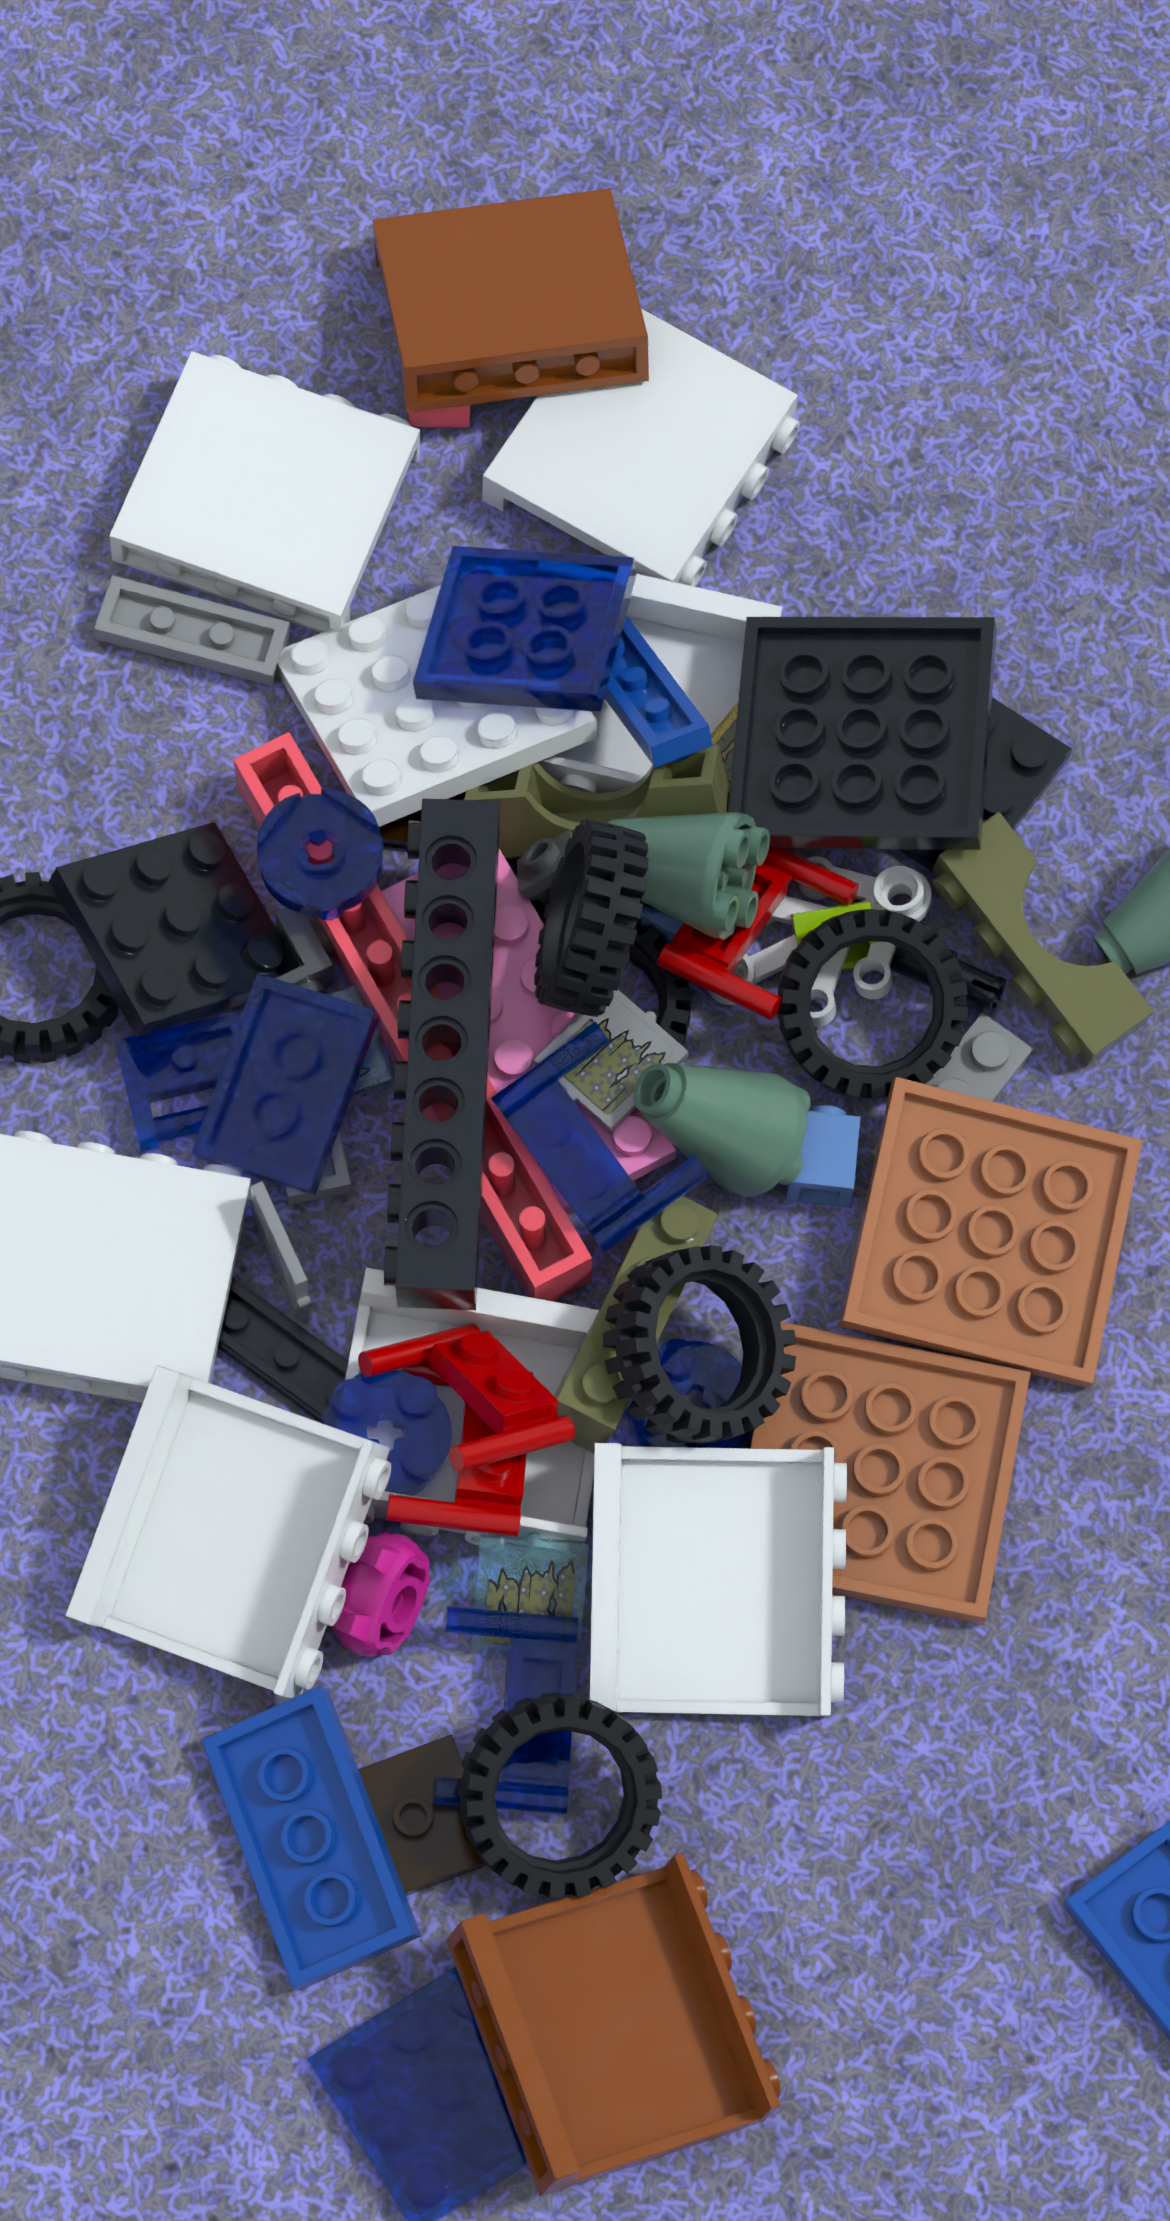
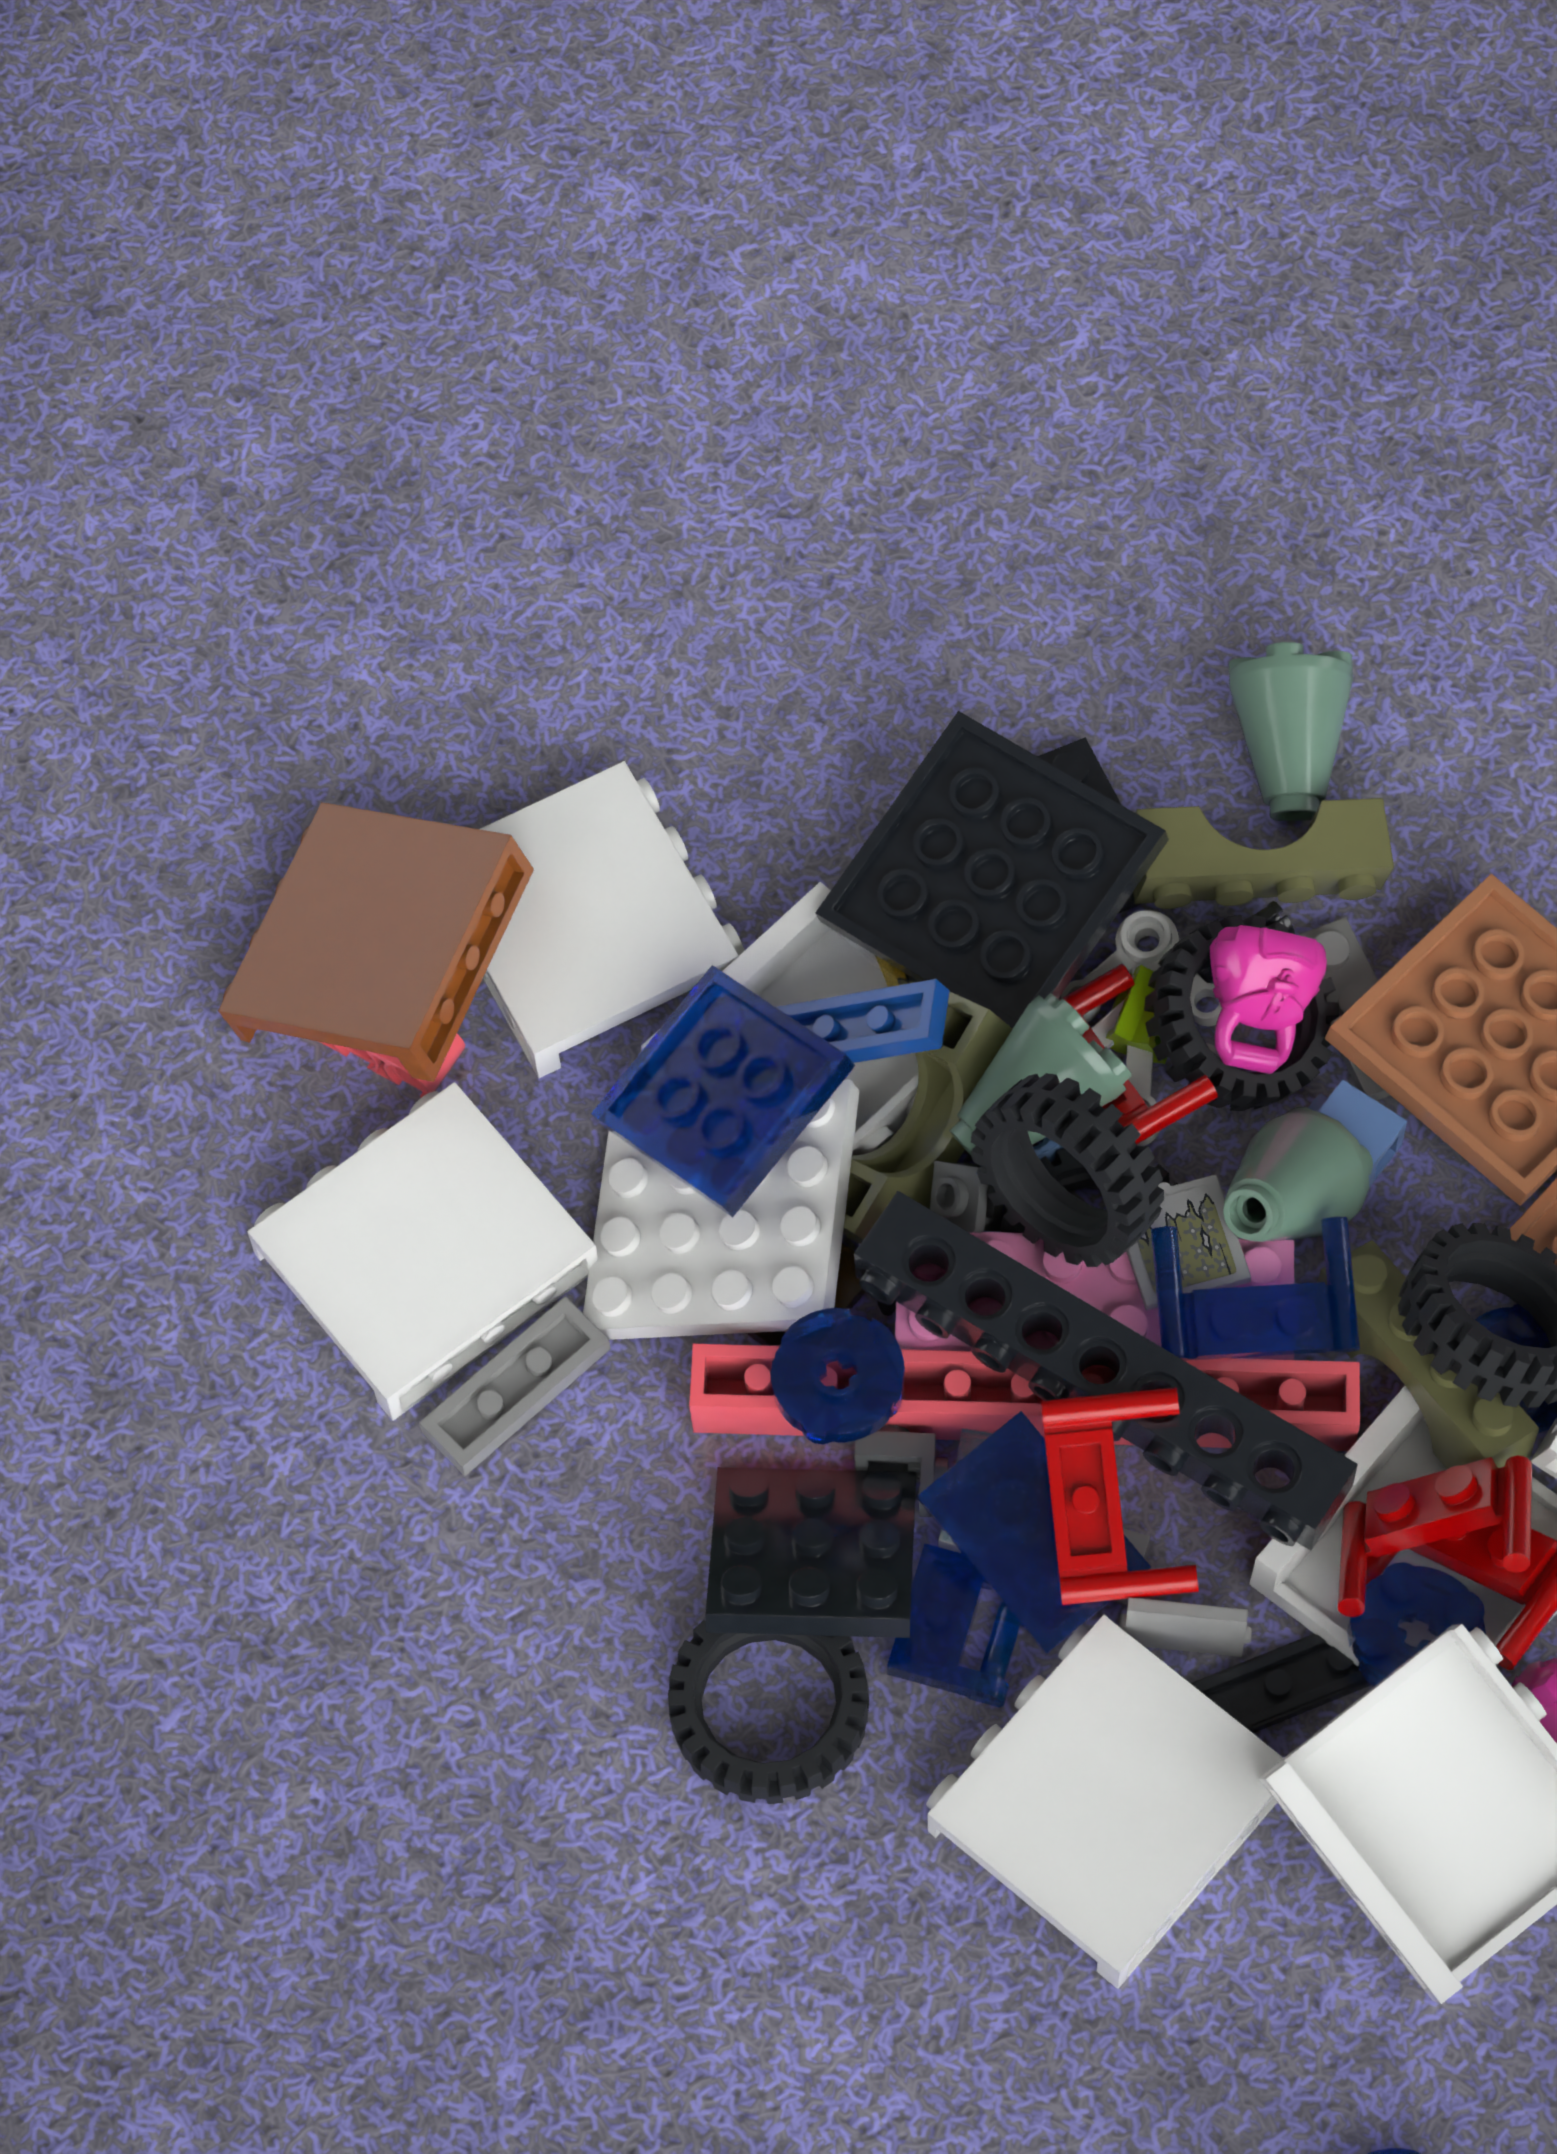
camera: 50 degrees left, 5 degrees down
(323, 1102) = (1088, 1498): none -> red plate
(887, 996) = (1266, 984): none -> dark pink piece

